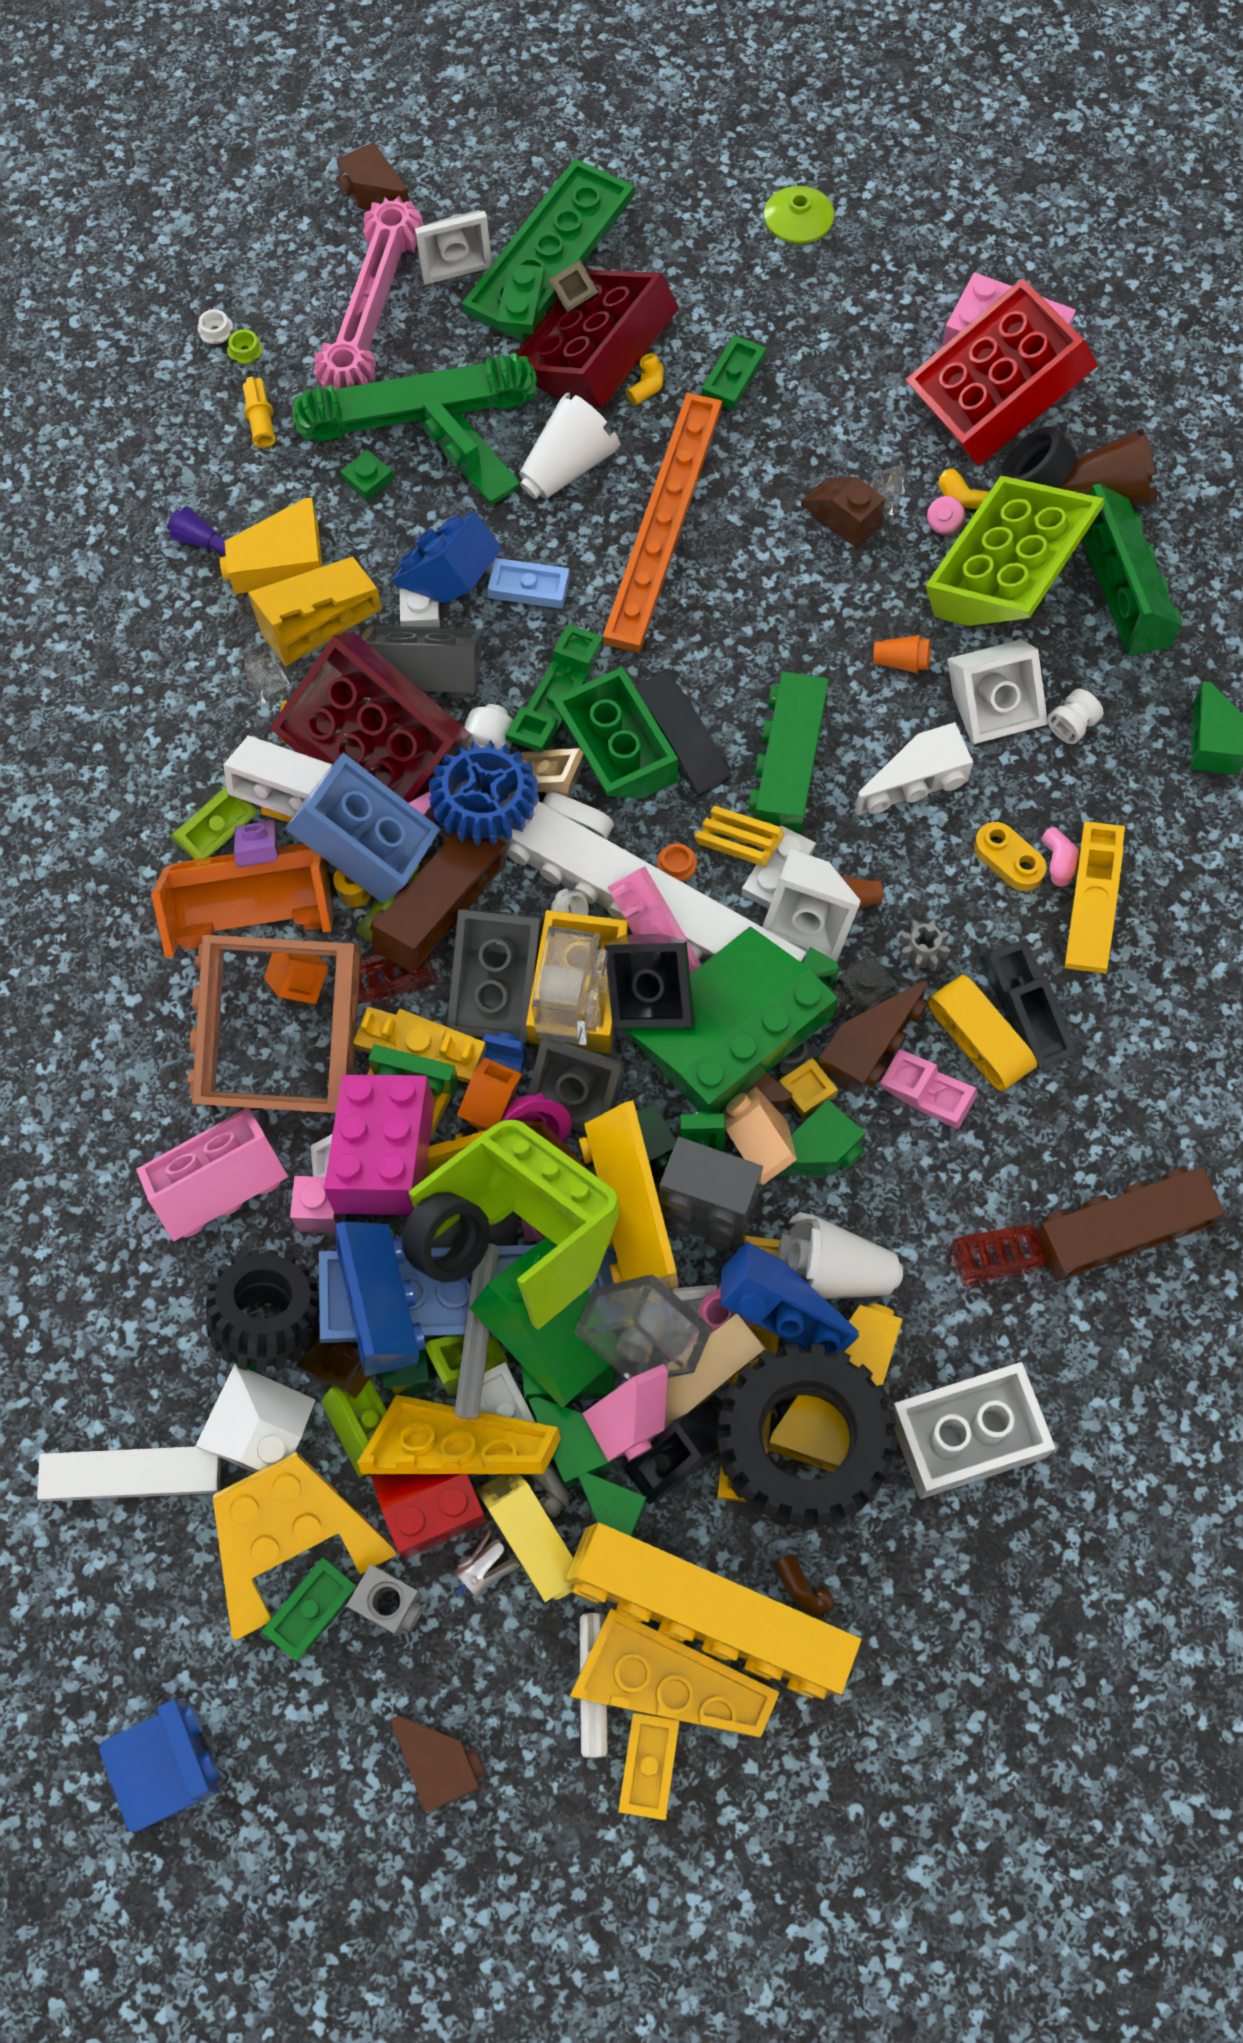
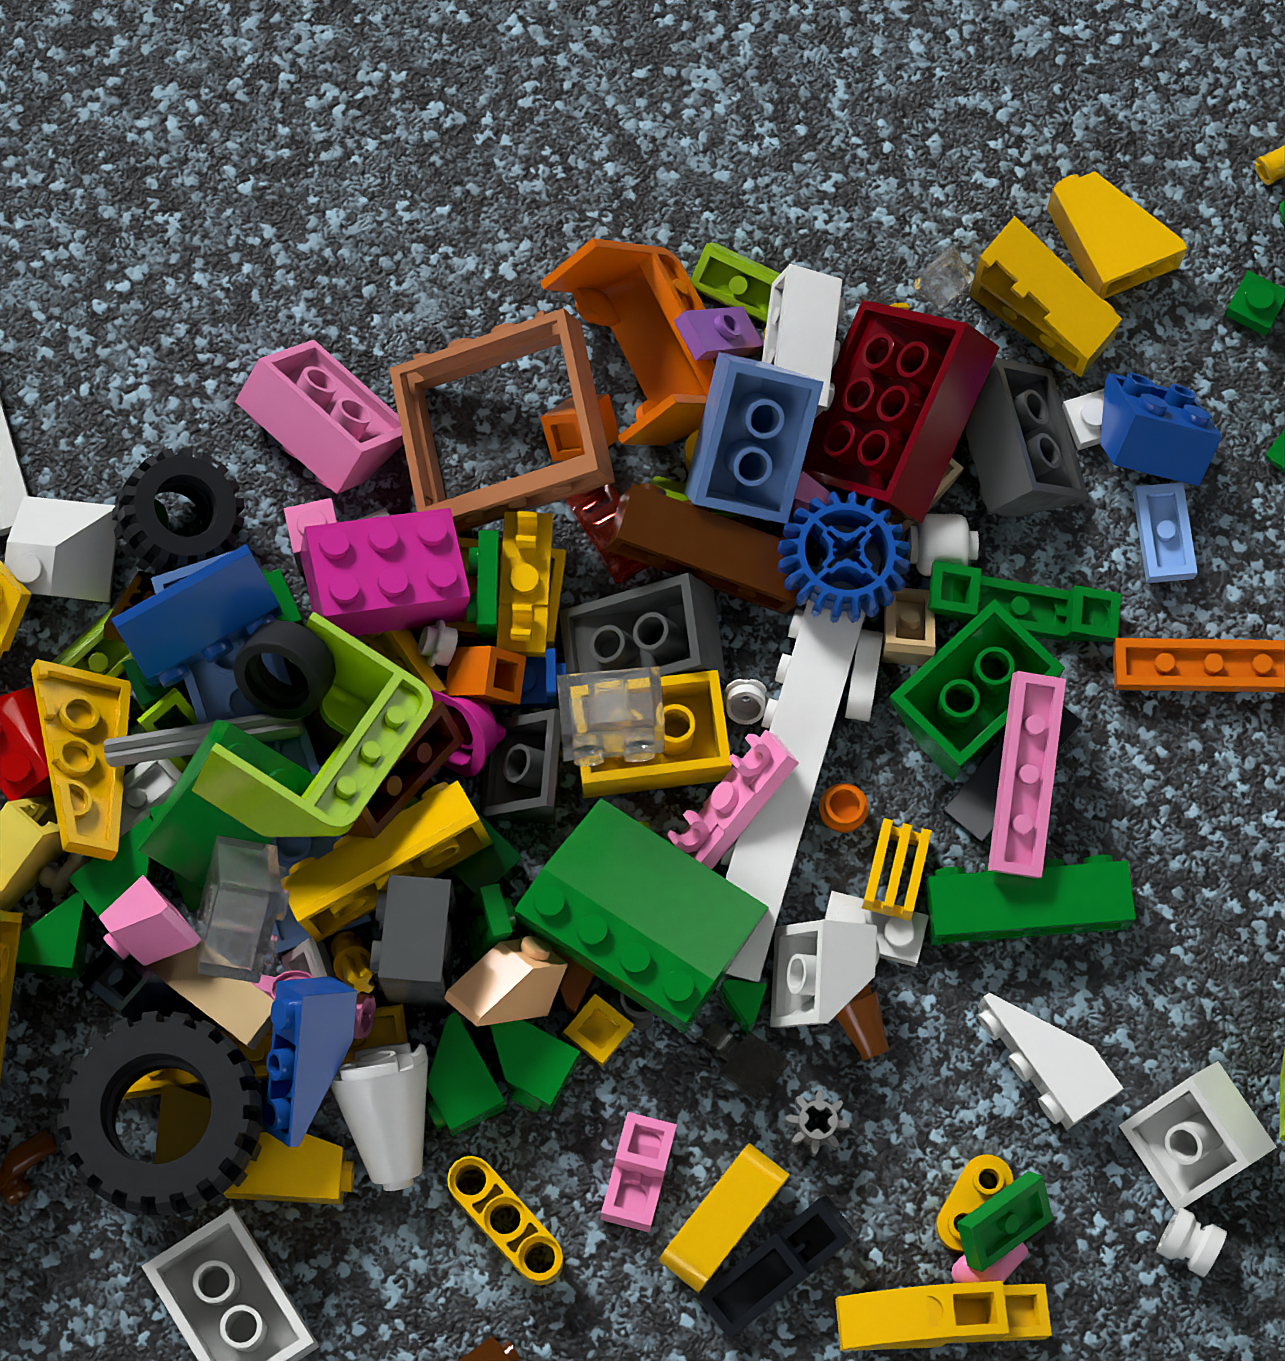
camera: 70 degrees right, 5 degrees up
(193, 530) = (1109, 133): dark purple cone -> none
(451, 1122) = (438, 643): none -> white plate
(649, 982) = (652, 802): black slope -> none
(700, 712) = (1027, 775): none -> bright pink plate
(706, 1259) = (352, 961): none -> yellow axle
(829, 1196) = (460, 1082): none -> green slope
(863, 1042) = (670, 1081): reddish brown slope -> none
(903, 653) = (1214, 1008): orange cone -> none
(959, 1181) = (493, 1198): none -> yellow beam
(964, 1261) = (430, 1261): clear red slope -> none
(1034, 832) = (1005, 1221): none -> green plate

